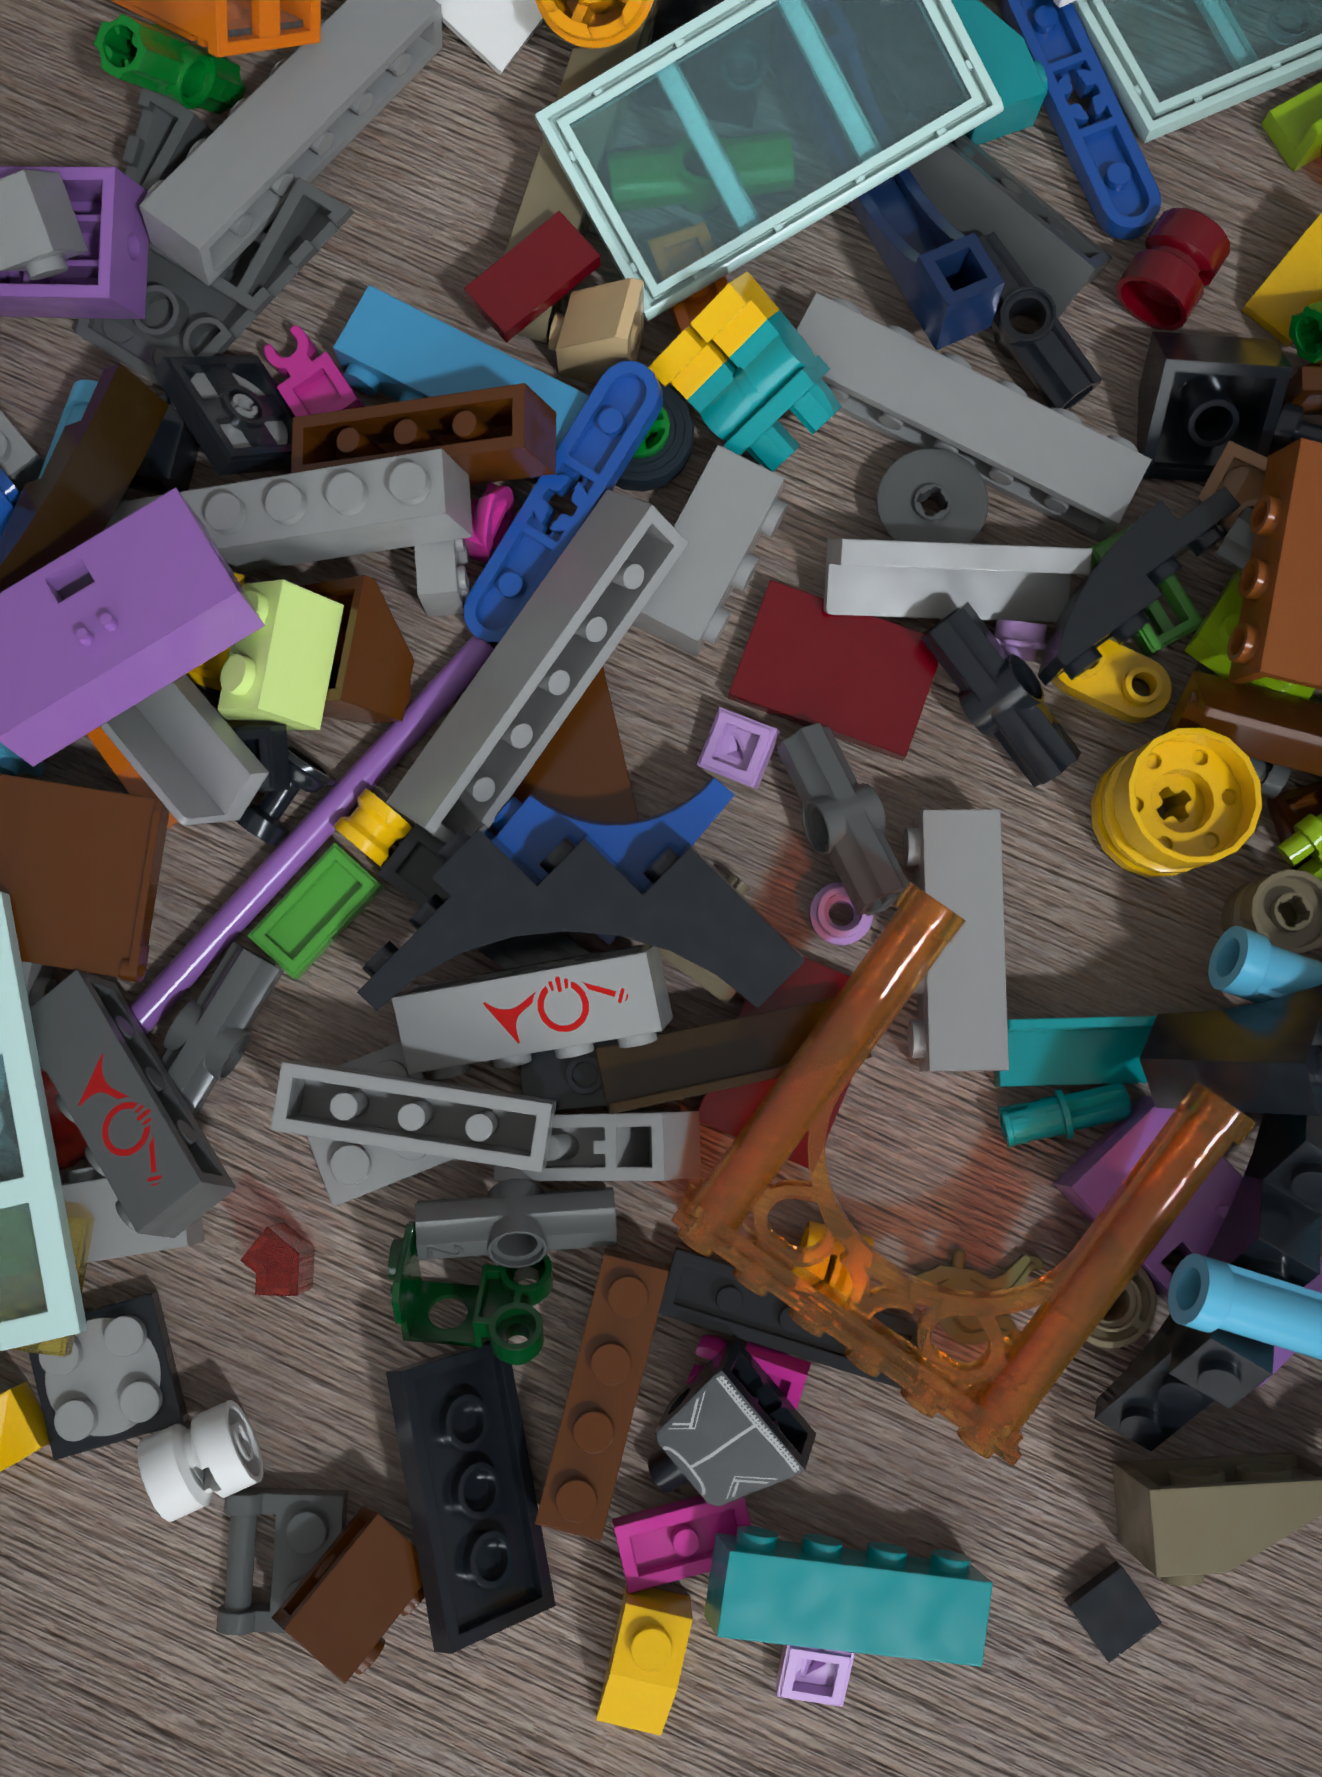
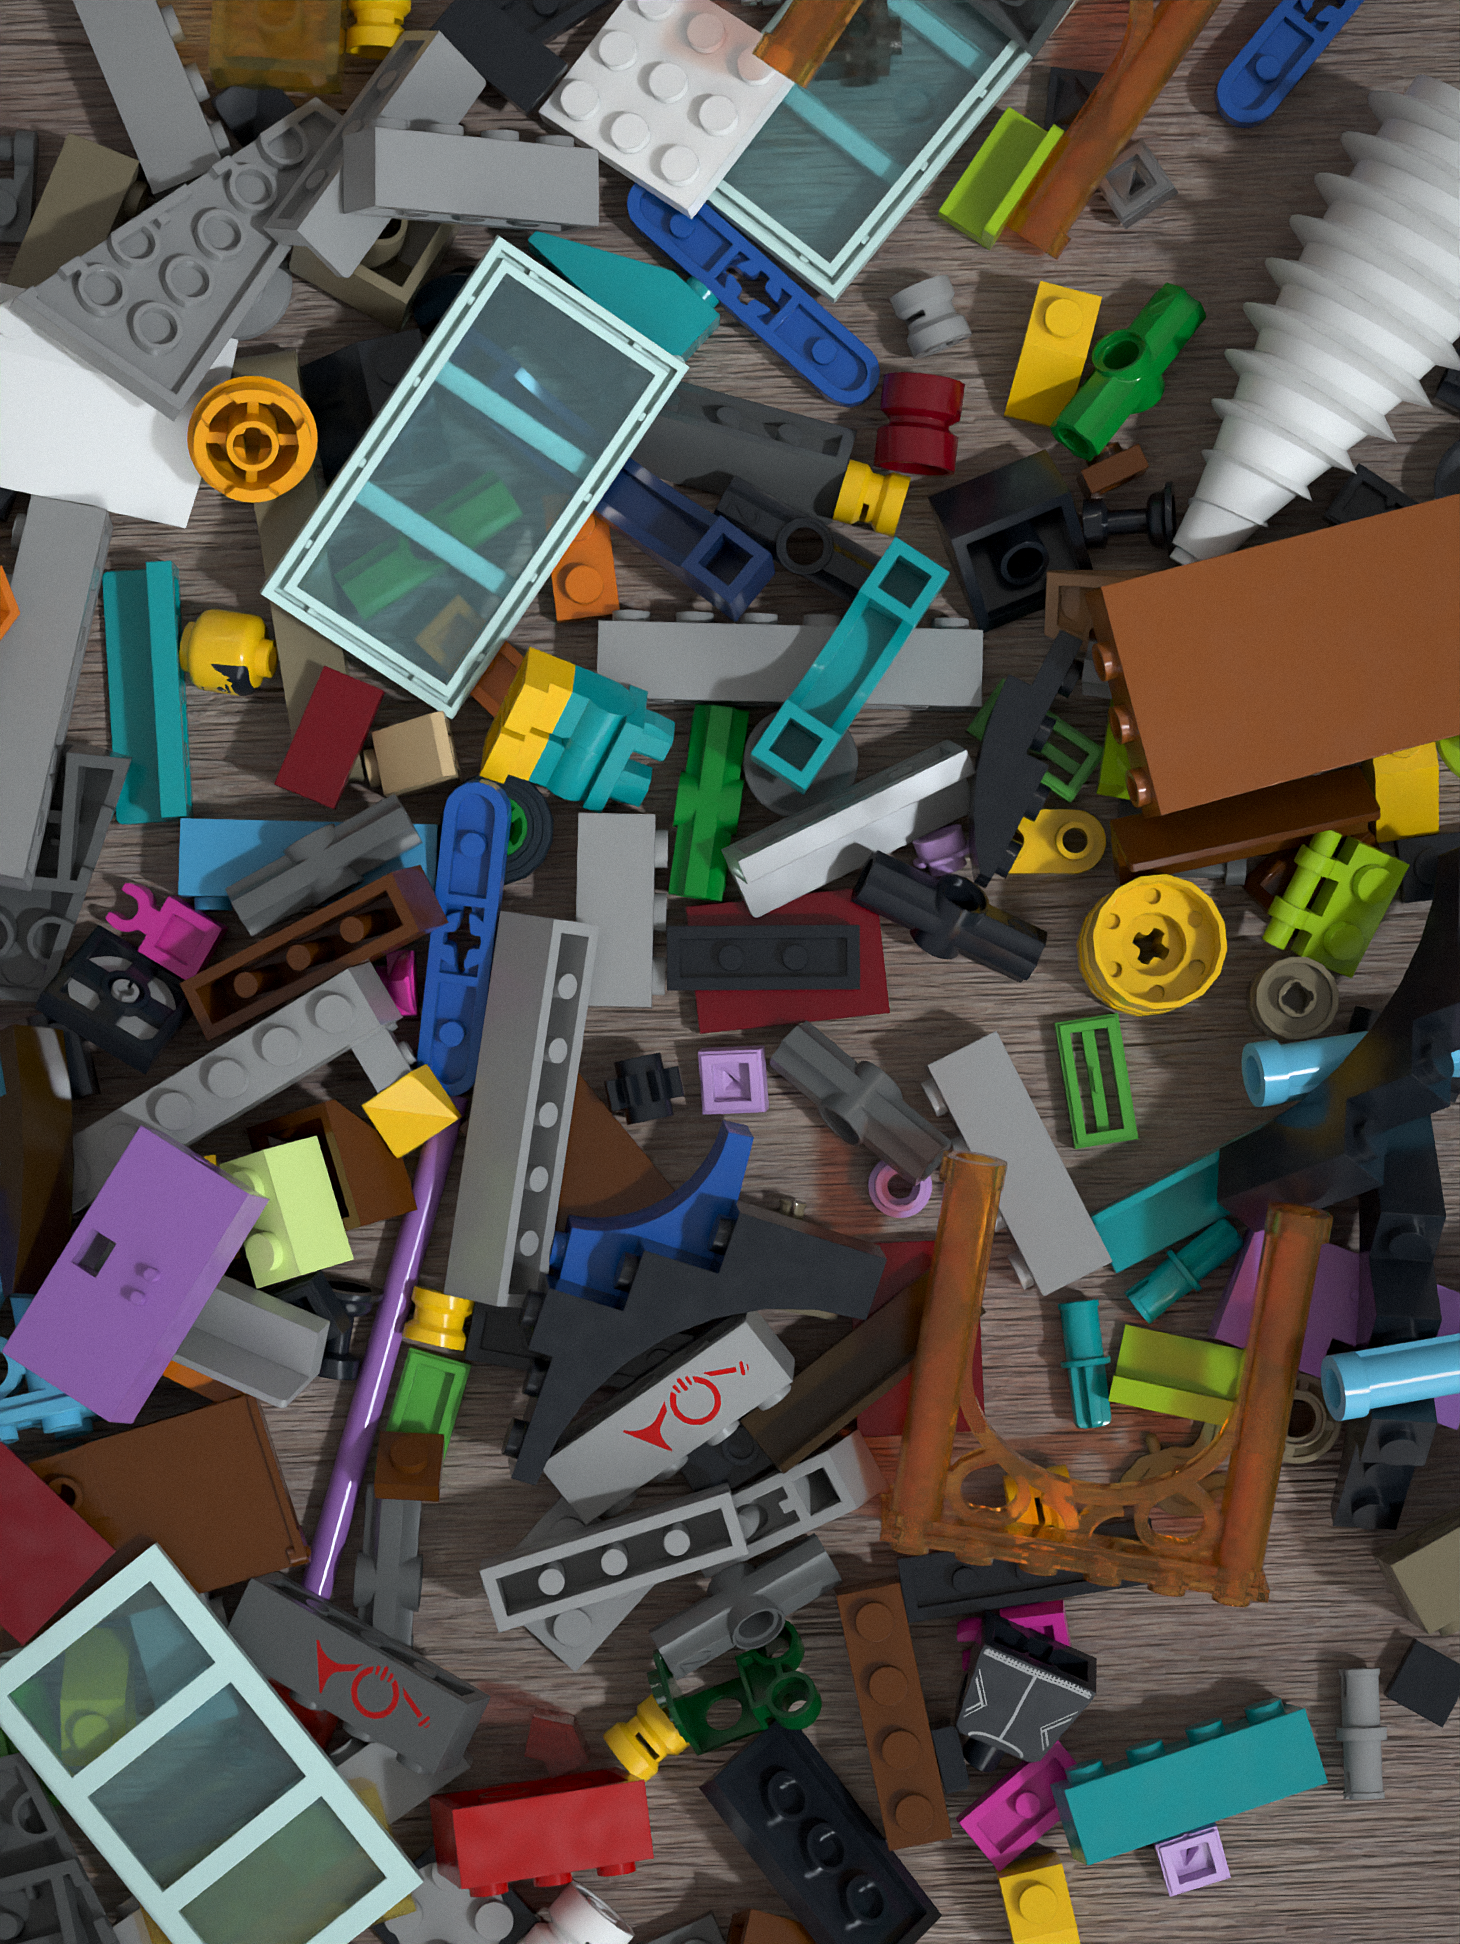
camera: 25 degrees left, 5 degrees up
(219, 1340) = (541, 1830): none -> red brick
(276, 943) = (409, 1466): none -> reddish brown plate
(360, 1302) = (655, 1728): none -> yellow wheel
(402, 185) = (148, 692): none -> teal panel
(440, 631) = (411, 1111): none -> yellow slope
(467, 364) = (323, 865): none -> dark grey piece
(483, 178) = (228, 652): none -> yellow head
(635, 1458) = (949, 1755): none -> black tile
(656, 714) = (643, 1088): none -> black gear
(818, 649) = (763, 957): none -> black plate
(821, 258) = (586, 576): none -> orange plate
(834, 499) = (708, 802): none -> green piece
(933, 1154) = (1085, 1363): none -> teal axle
(1014, 1208) = (1176, 1375): none -> lime panel
(1029, 1630) = (1361, 1733): none -> light grey pin
(1044, 957) = (1070, 1082): none -> bright green tile
(1072, 395) = (849, 666): none -> teal arch
(1114, 318) = (871, 498): none -> yellow wheel
(1223, 184) = (930, 316): none -> light grey wheel

